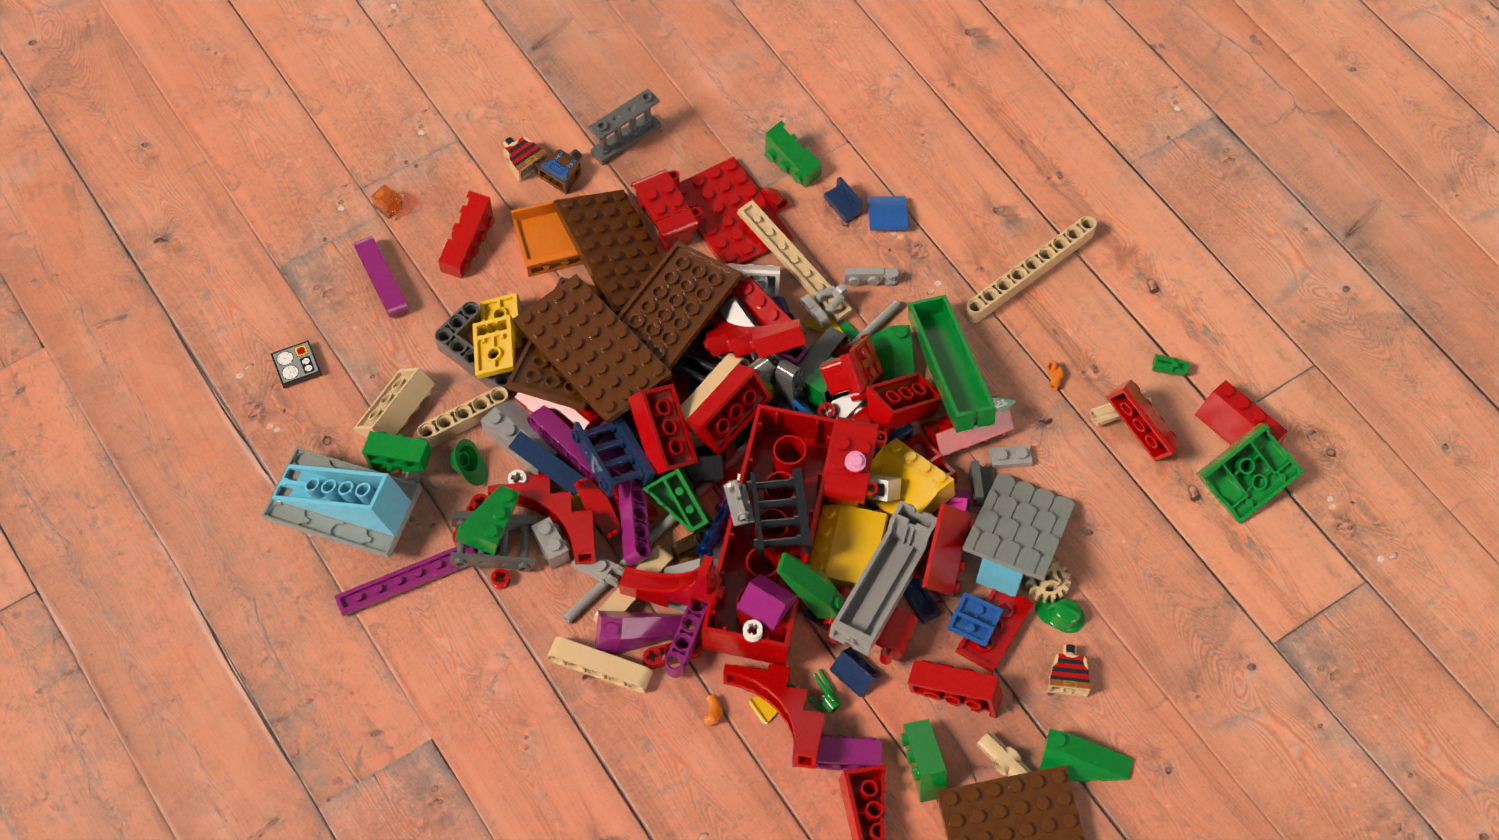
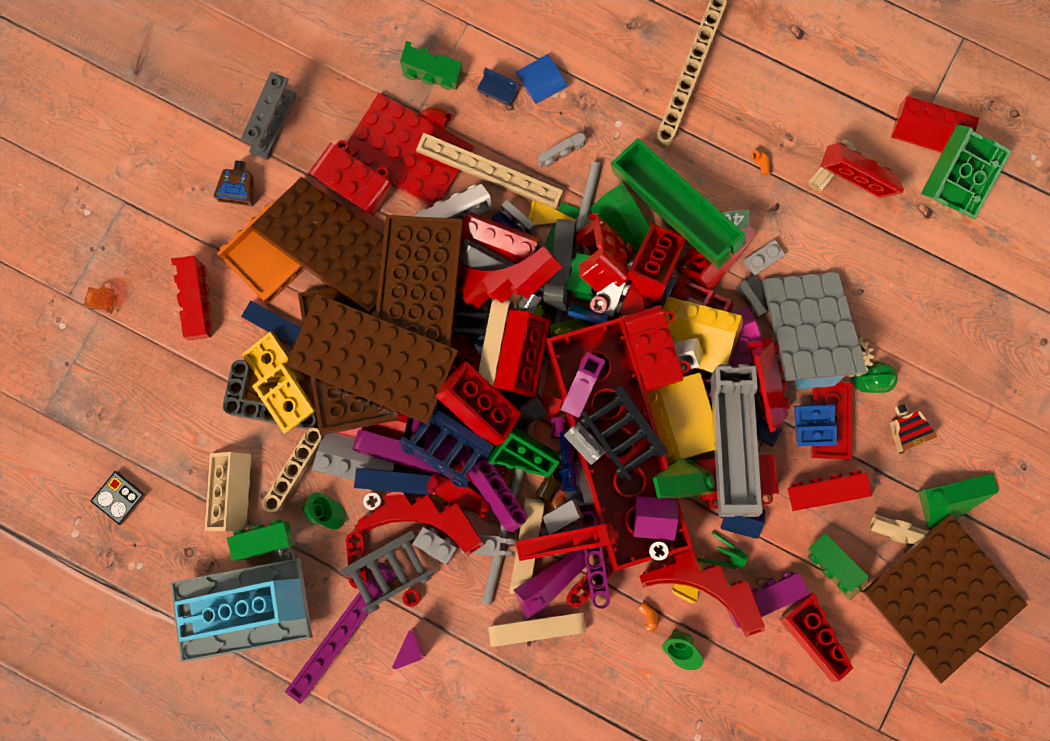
camera: 25 degrees left, 20 degrees up
(380, 276) = (140, 376): magenta beam -> none
(468, 617) = (410, 651): none -> magenta slope
(489, 521) = (380, 563): green wedge -> none
(518, 284) = (271, 323): none -> dark blue tile
(523, 156) = (194, 191): torso -> none
(726, 755) = (682, 650): none -> green piece
(768, 451) = (582, 385): none -> slope
(796, 309) = (514, 214): none -> light grey plate
(812, 305) = (538, 210): light grey piece -> none
(855, 461) = (662, 354): bright pink plate -> none
(1170, 365) = (854, 102): green hinge -> none

